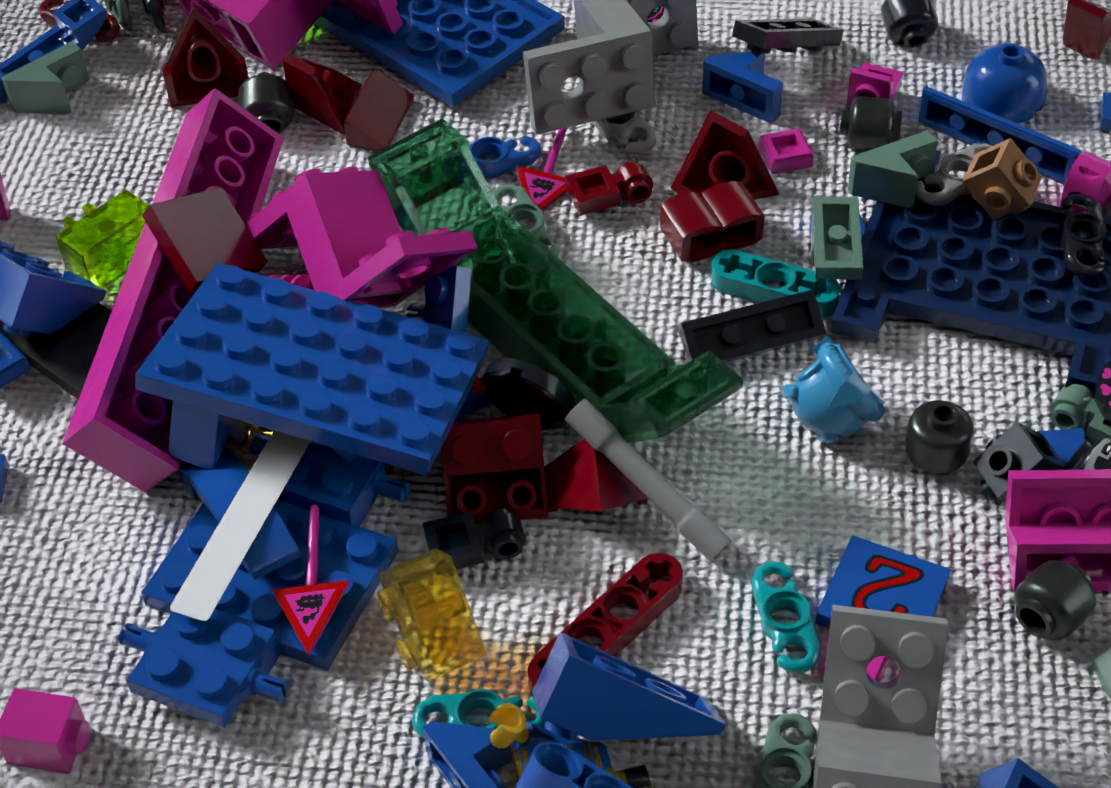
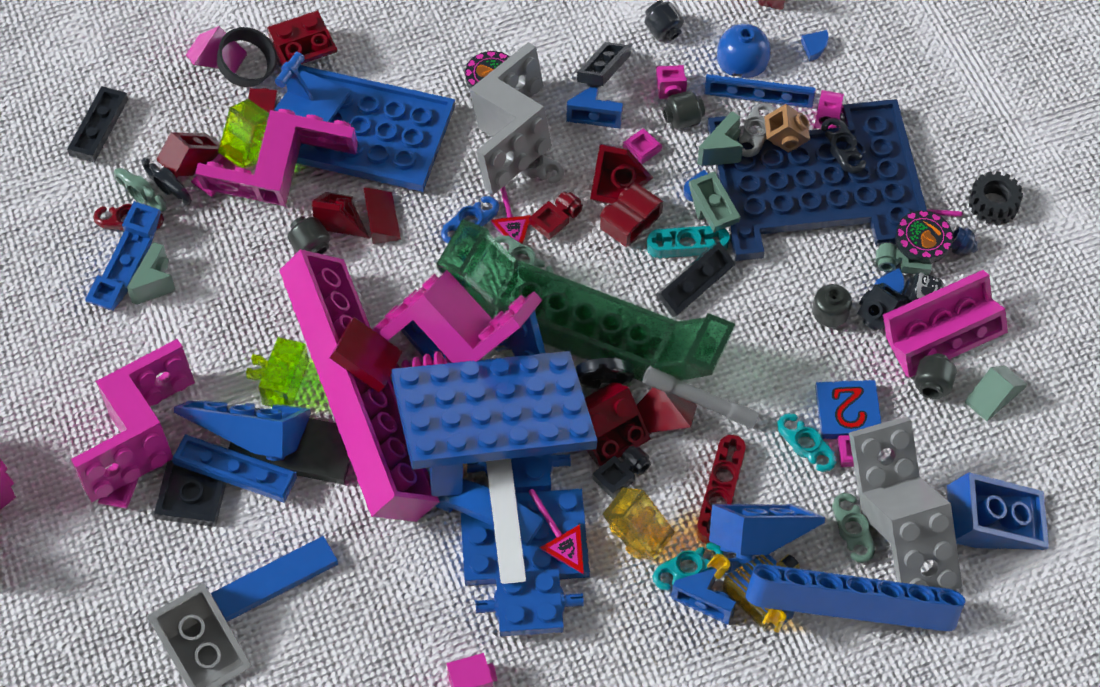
camera: 30 degrees left, 10 degrees up
(202, 62) = (253, 225): dark red slope -> none
(833, 395) = (765, 303): dark azure helmet -> none

